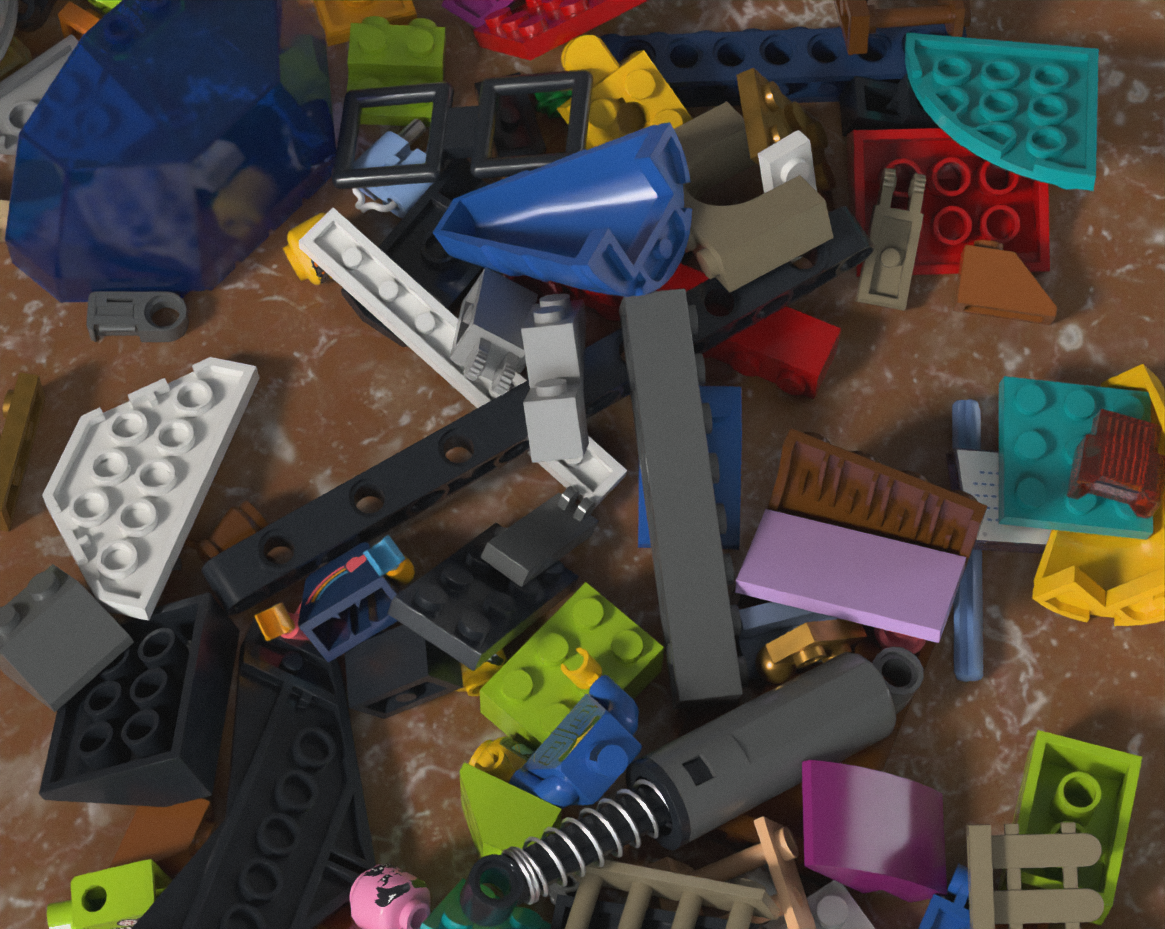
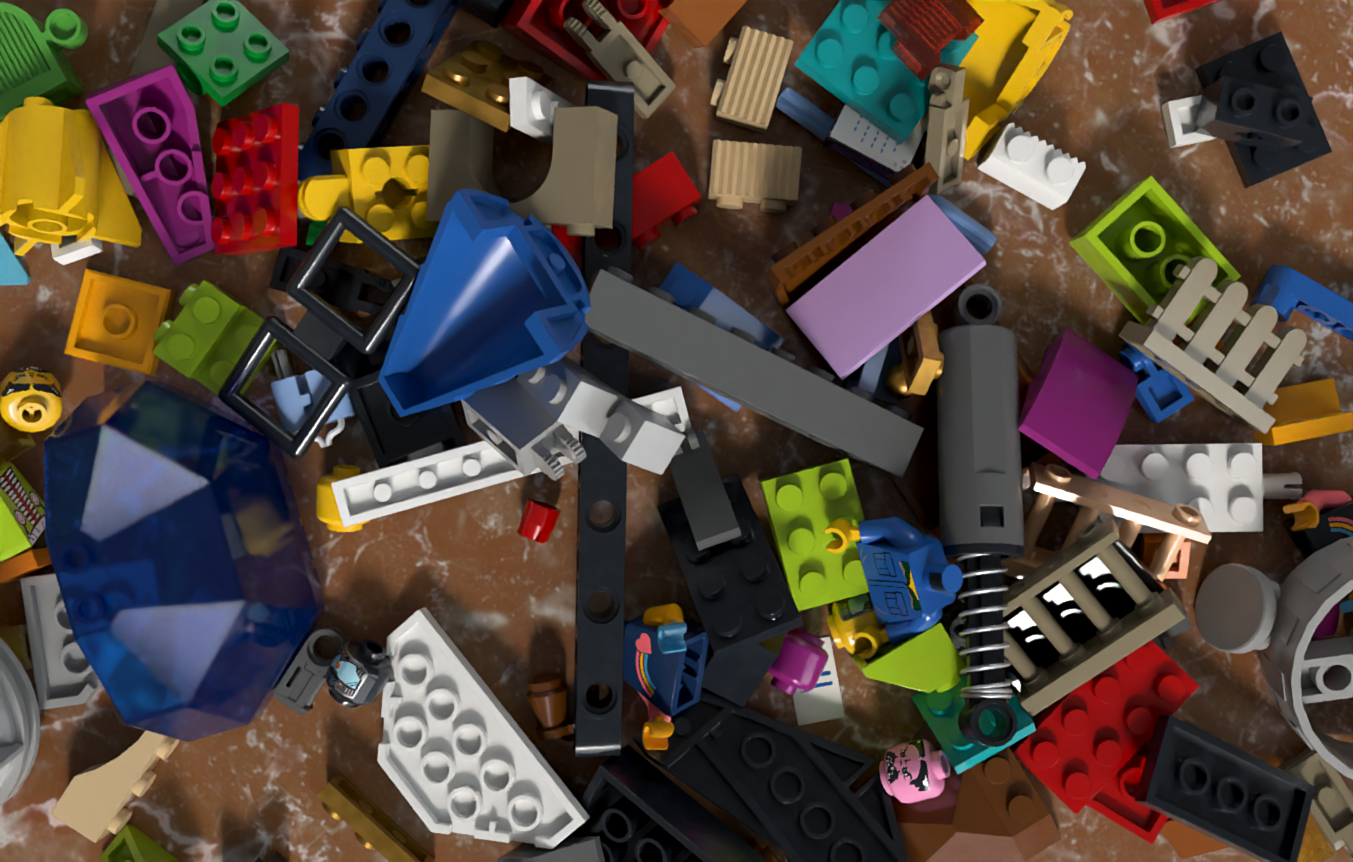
camera: 55 degrees left, 25 degrees up
(160, 348) = (358, 673): none -> black head
(408, 424) = (538, 520): none -> red hose
(415, 780) = (825, 699): none -> white sticker
(428, 732) = (798, 662): none -> magenta head
(874, 416) = (754, 175): none -> tan brick
(958, 366) = (753, 79): none -> tan brick
(1039, 550) = (946, 126): none -> dark tan hinge
(1071, 660) = (1032, 166): none -> white brick

